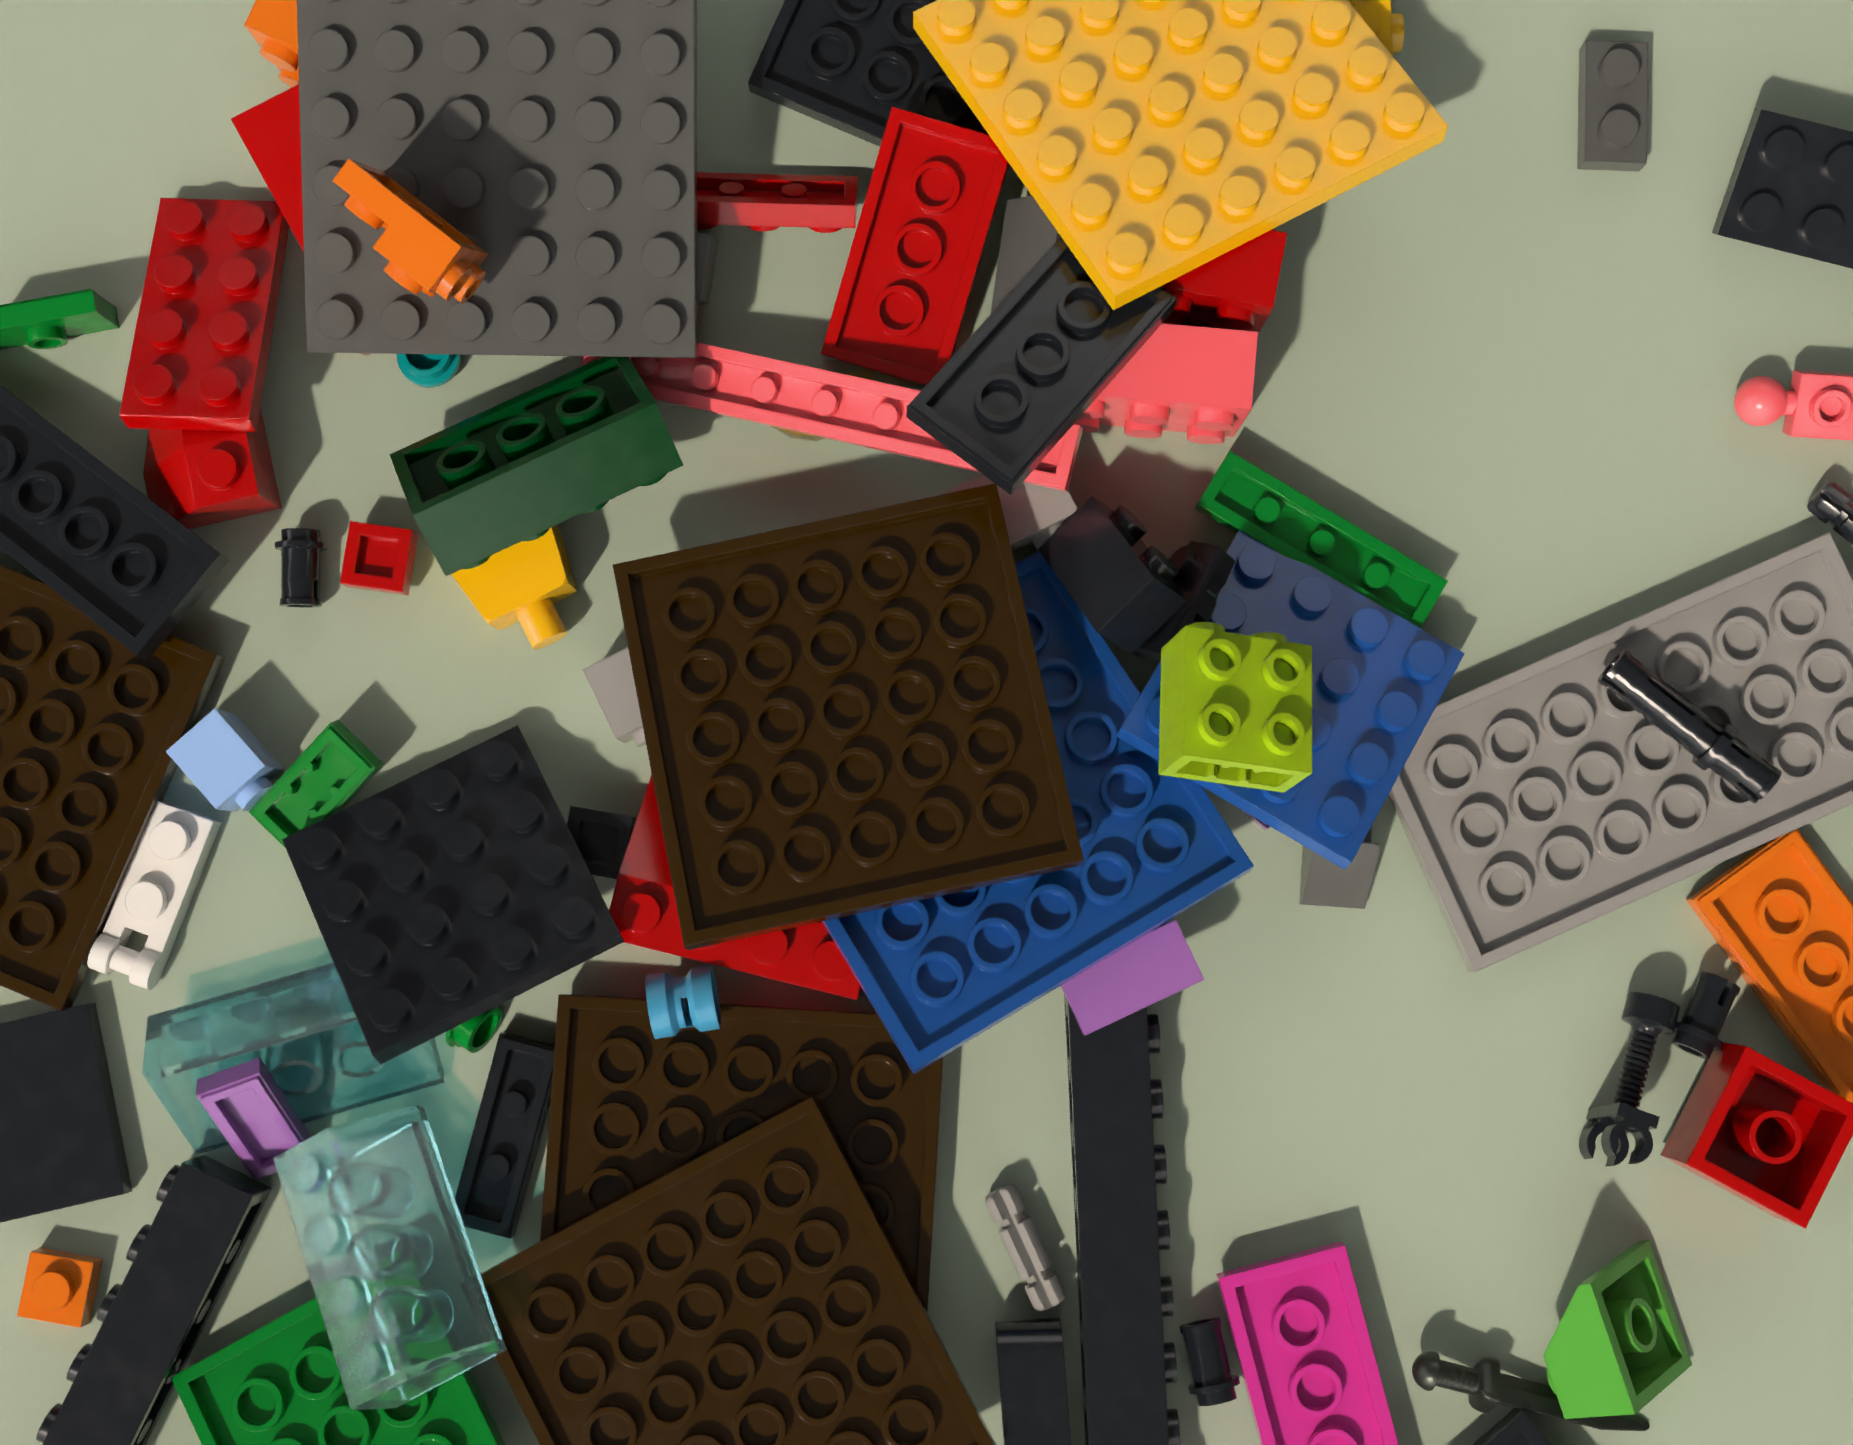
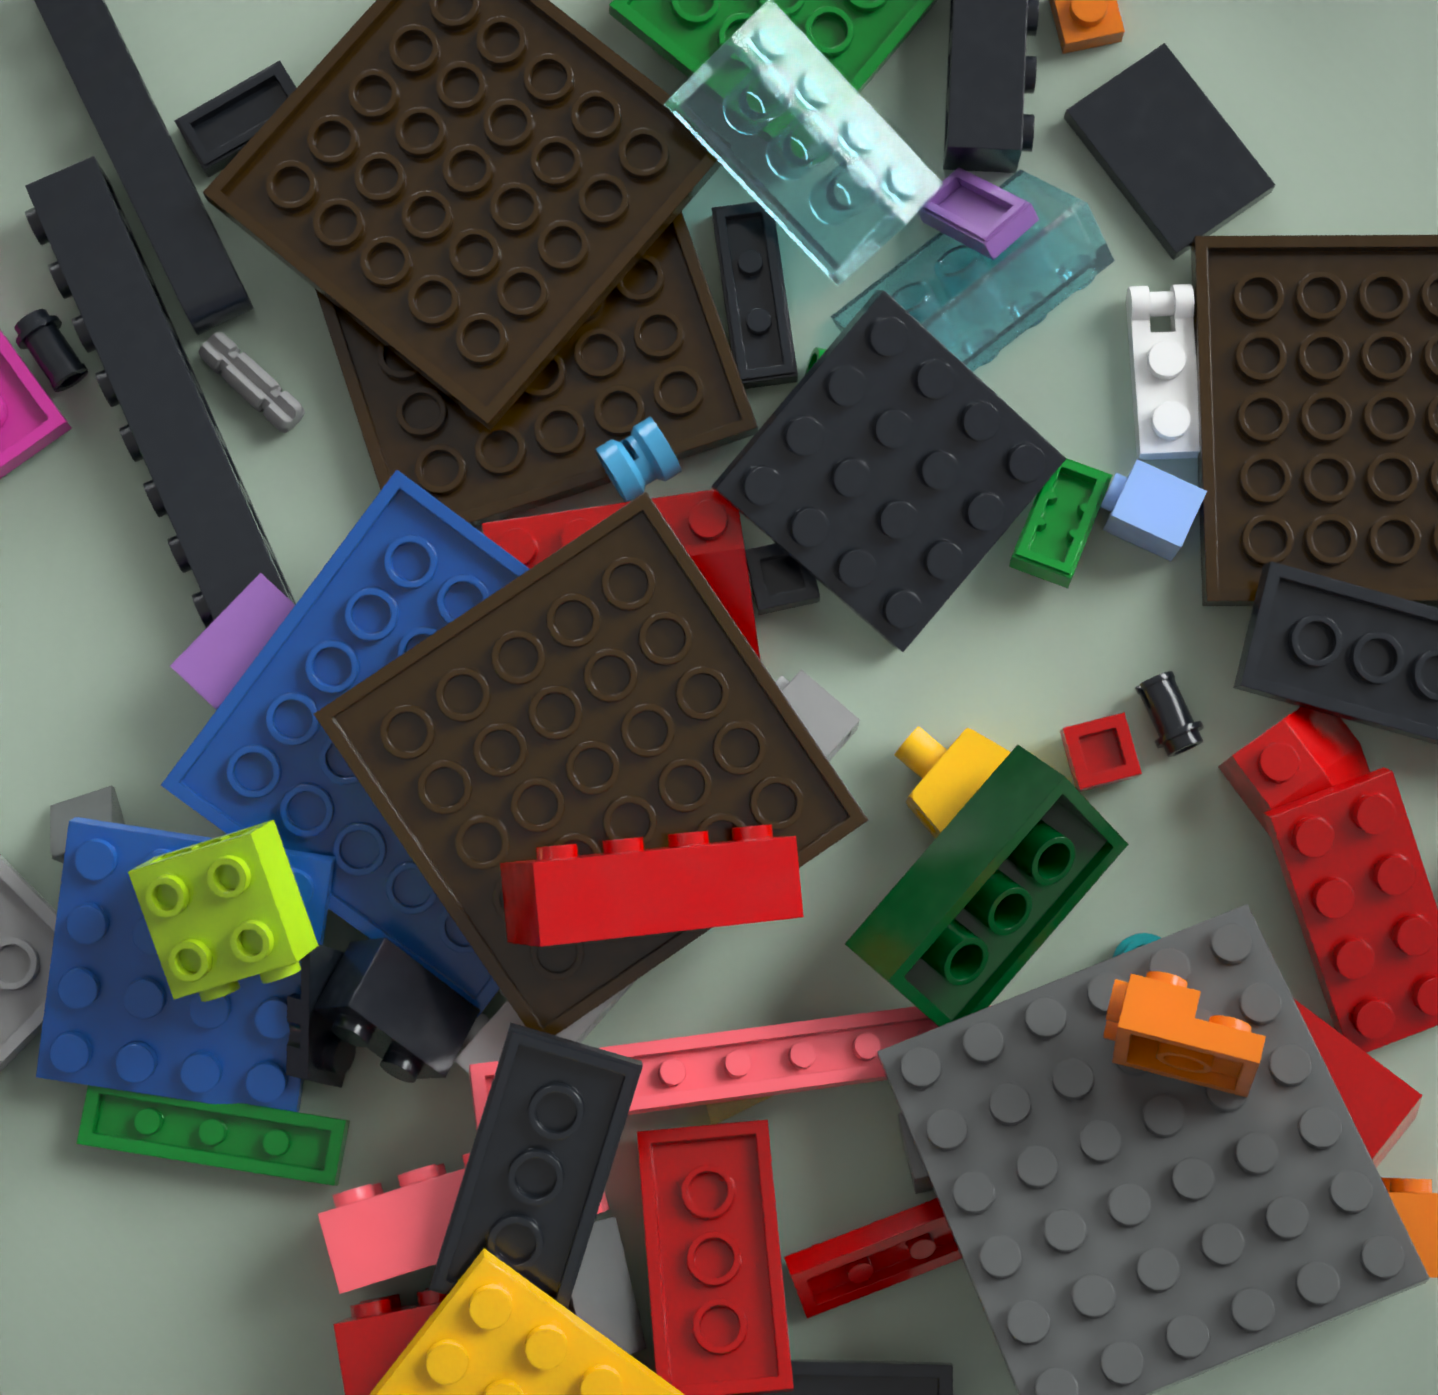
camera: 160 degrees right, 5 degrees down
(838, 567) = (653, 889): none -> red wedge

